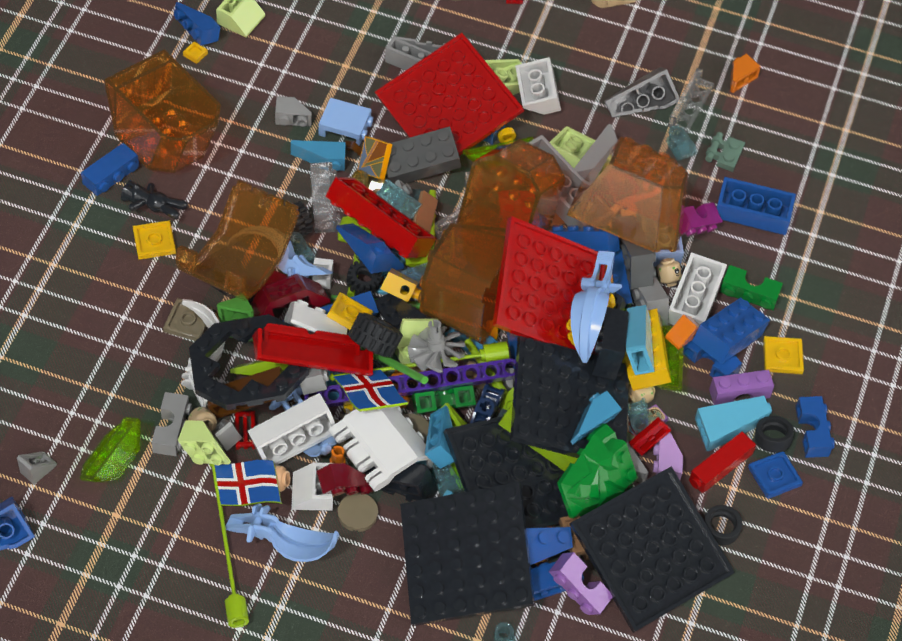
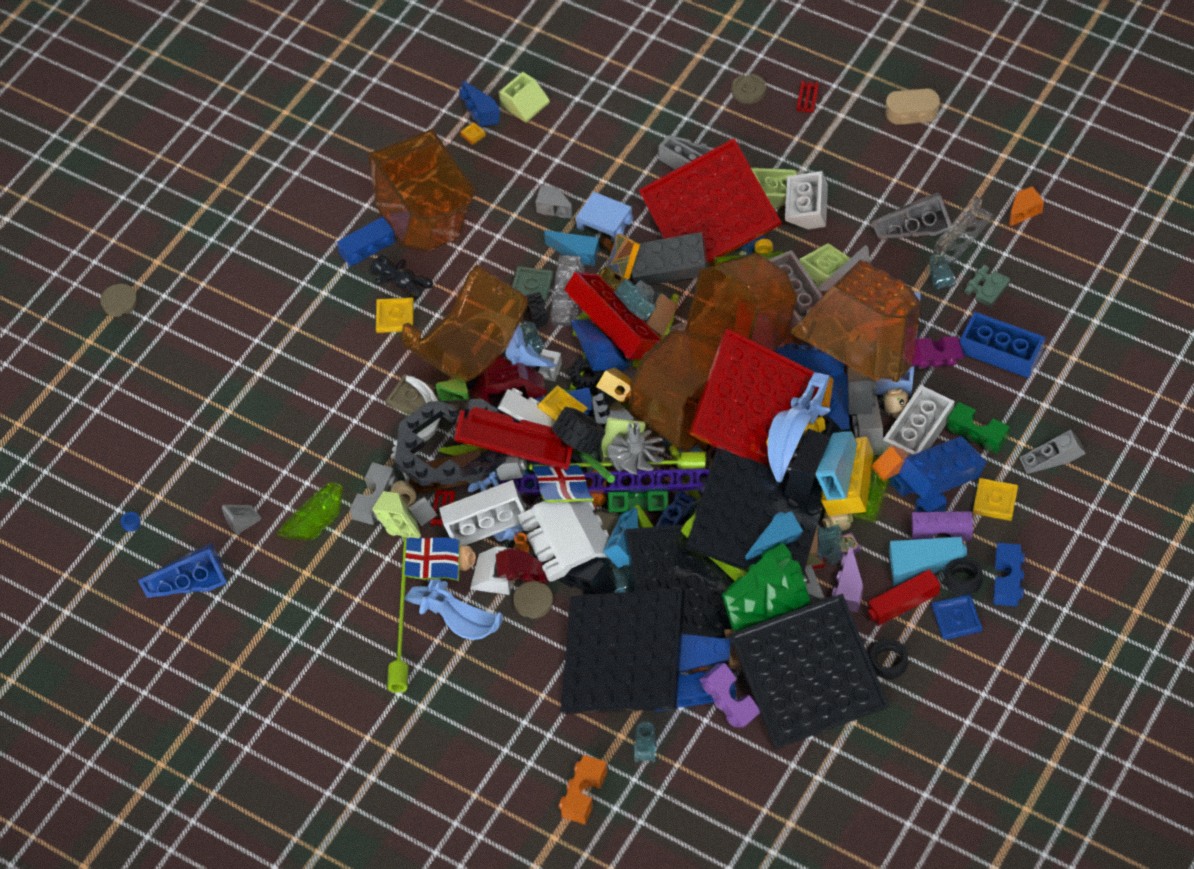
camera: 20 degrees right, 0 degrees up
(288, 189) = (533, 280): none -> sand green plate
(650, 436) = (831, 560): red tile -> none
(826, 304) = (1053, 453): none -> light grey slope

